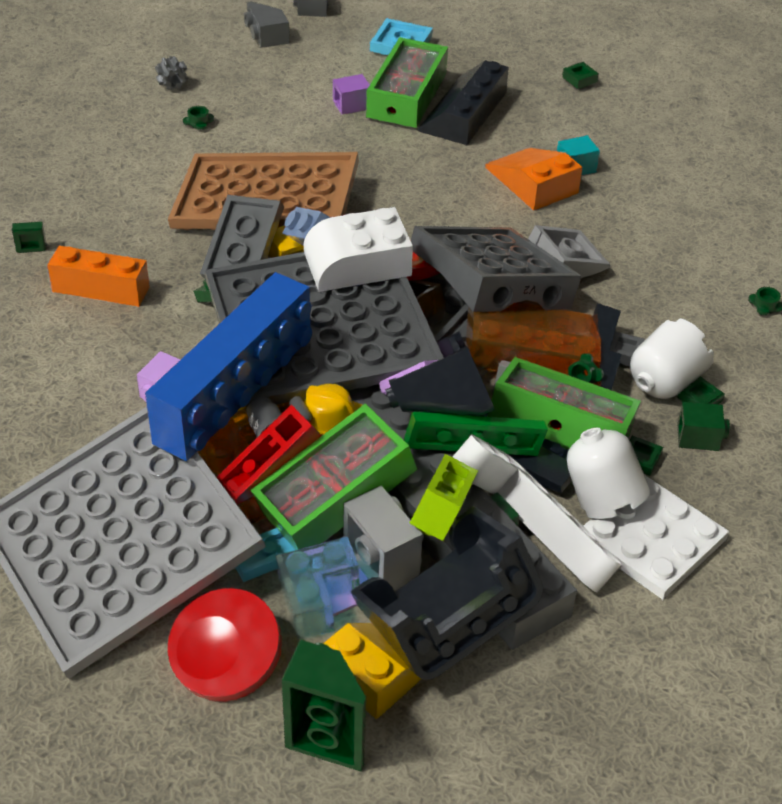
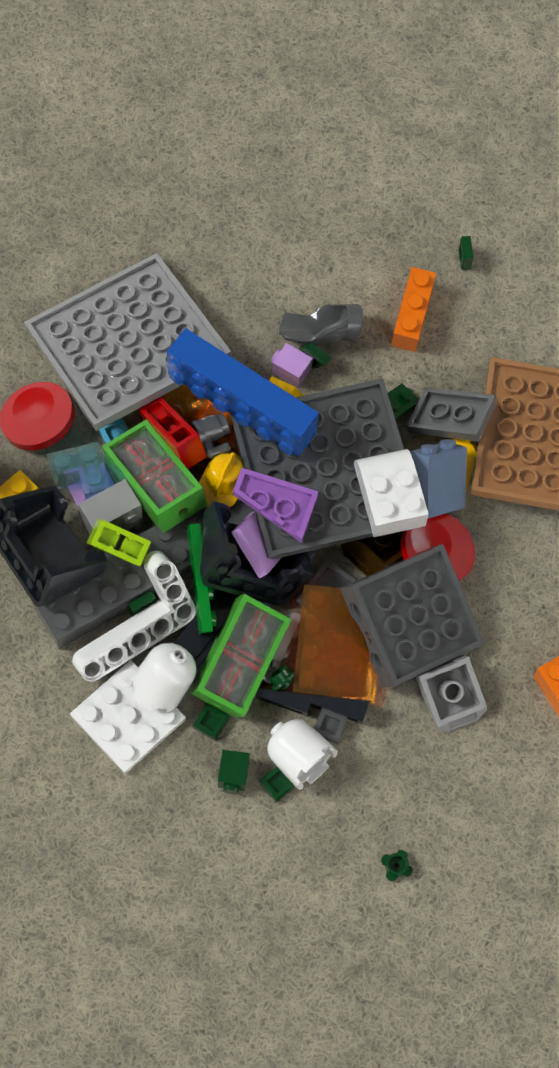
camera: 90 degrees right, 25 degrees up
(110, 345) = (327, 324): none -> dark grey hair
(150, 350) = (319, 357): none -> dark green tile
(375, 345) = (277, 500): none -> medium lavender wing

